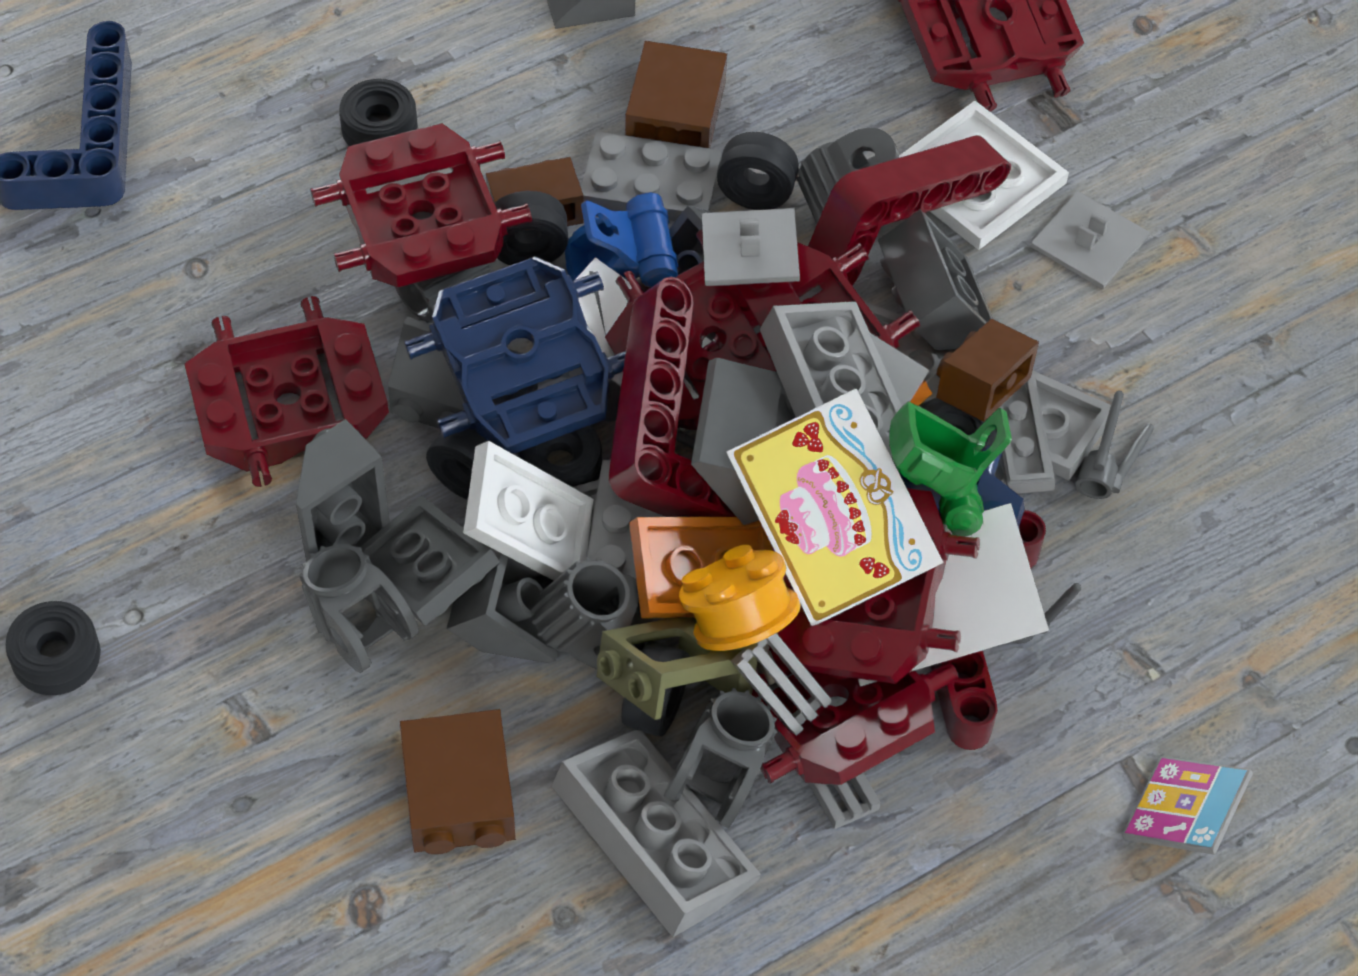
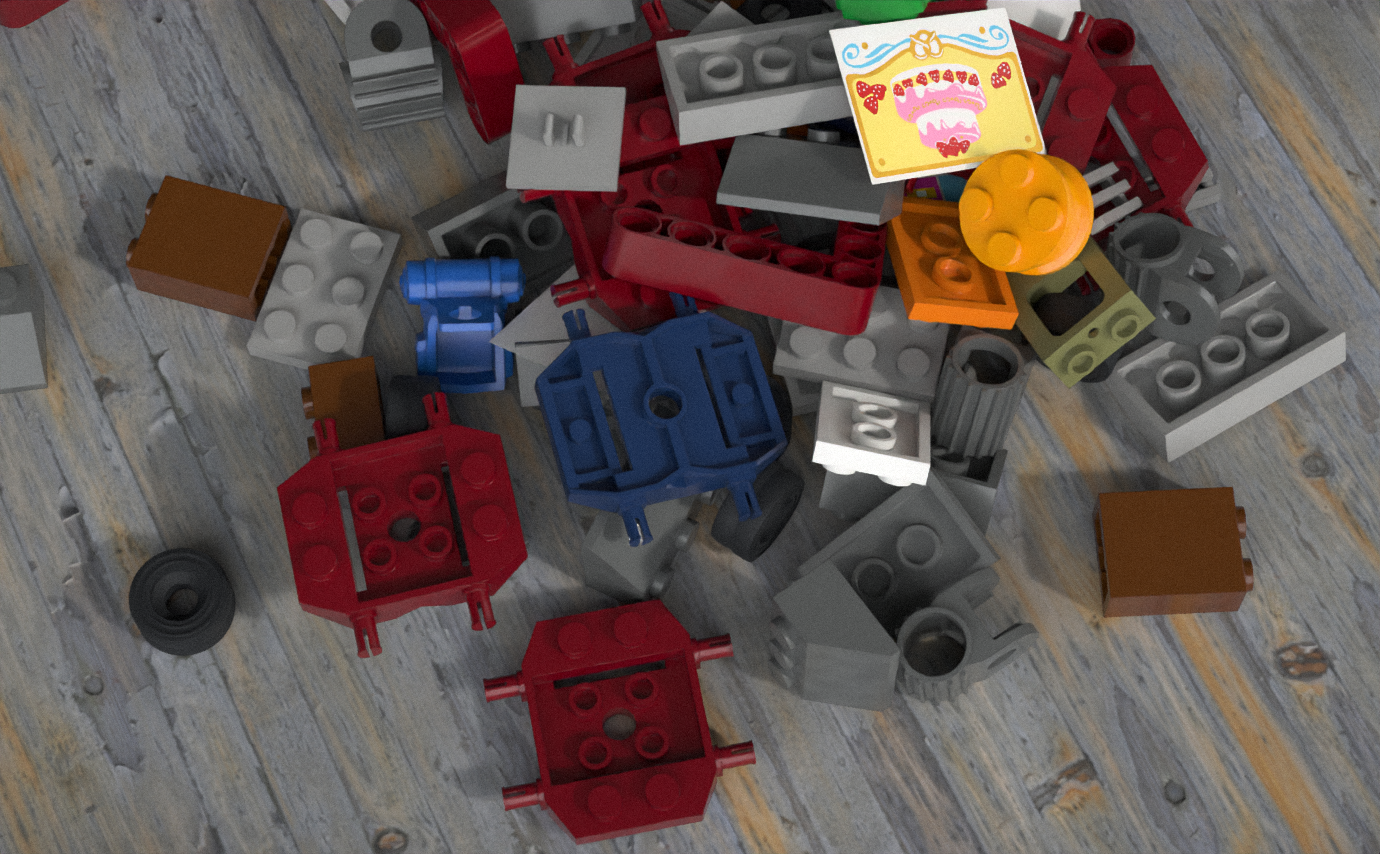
camera: 80 degrees left, 10 degrees up
(763, 153) = (357, 164): black tyre -> none

